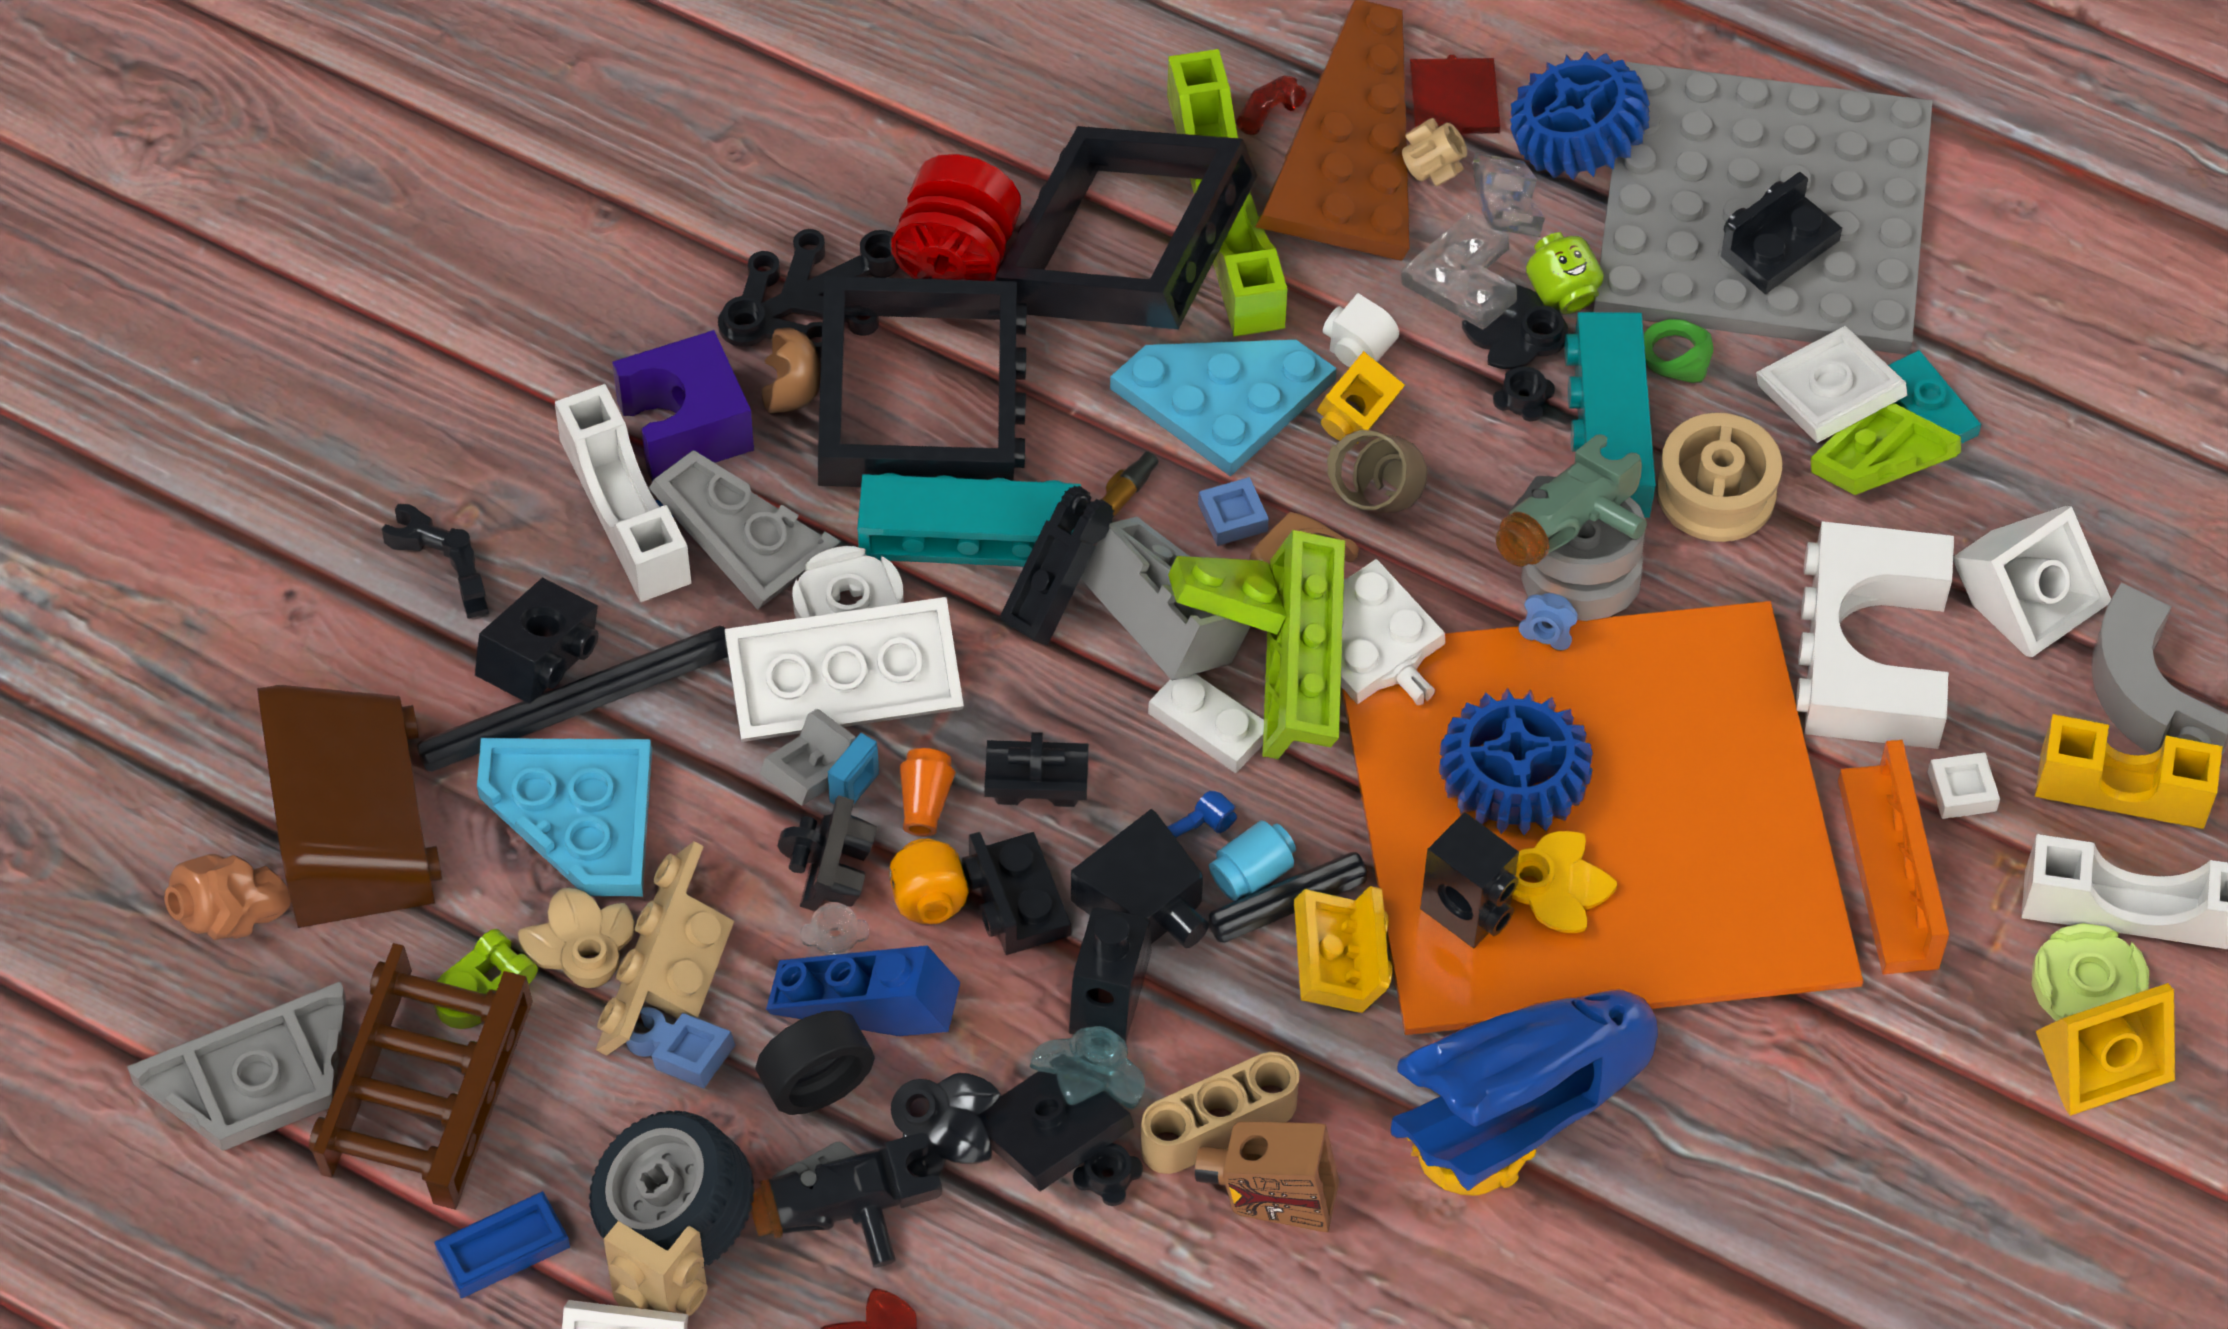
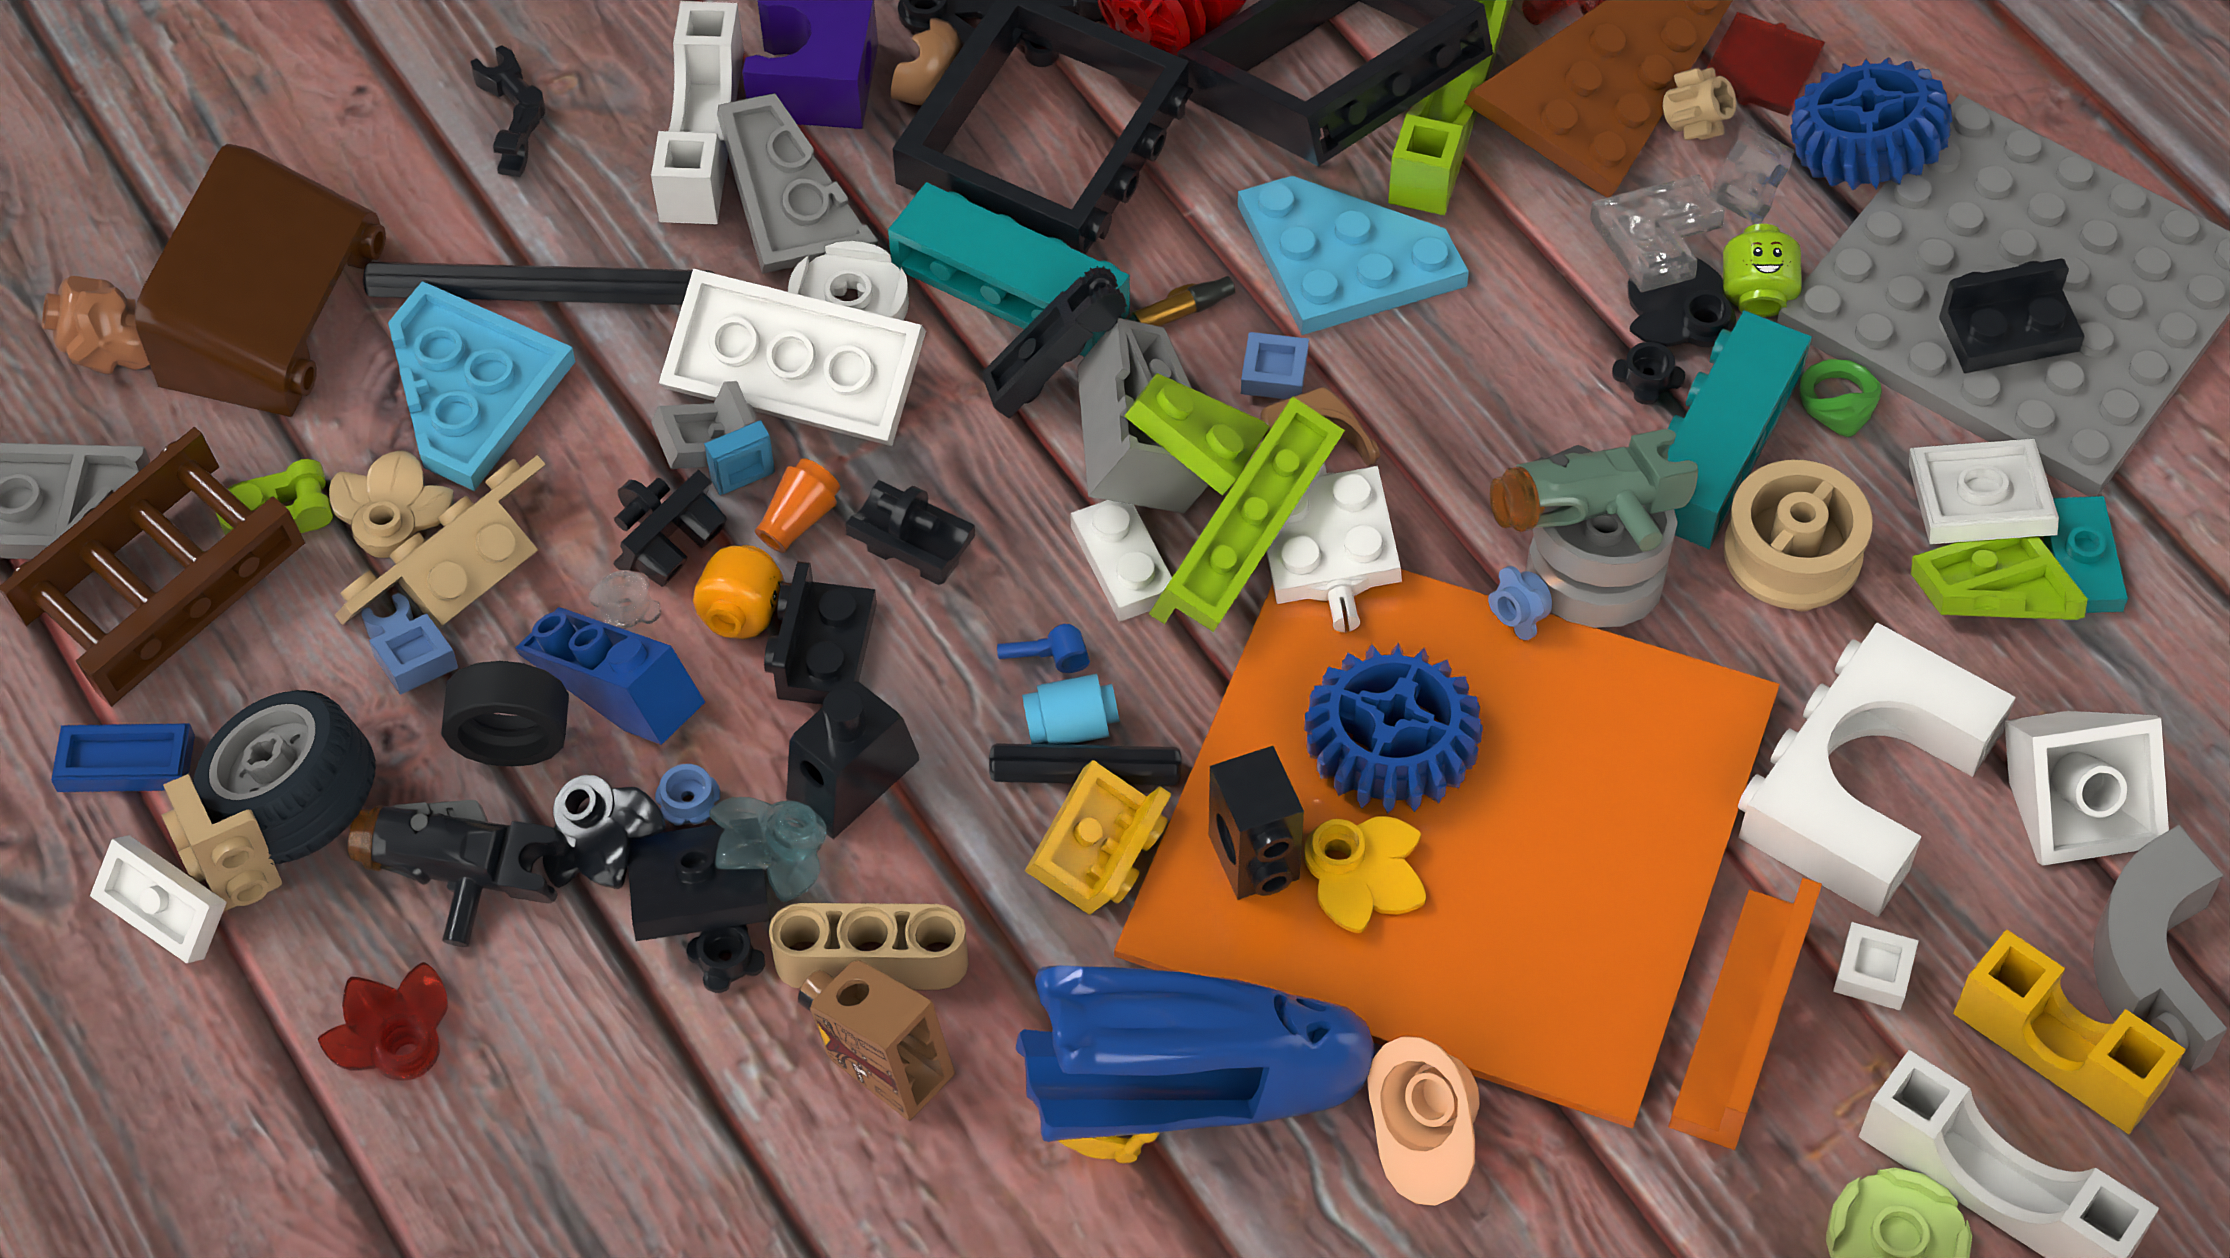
camera: 30 degrees right, 0 degrees up
(536, 640) = (528, 212): black brick -> none
(994, 1049) = (685, 781): none -> medium blue plate
(1146, 876) = (943, 686): black torso -> none
(1360, 328) = (1512, 246): white plate -> none
(1368, 387) = (1476, 291): yellow brick -> none
(1402, 467) = (1461, 378): dark tan helmet -> none
(1717, 1049) = (1423, 1119): none -> light nougat piece

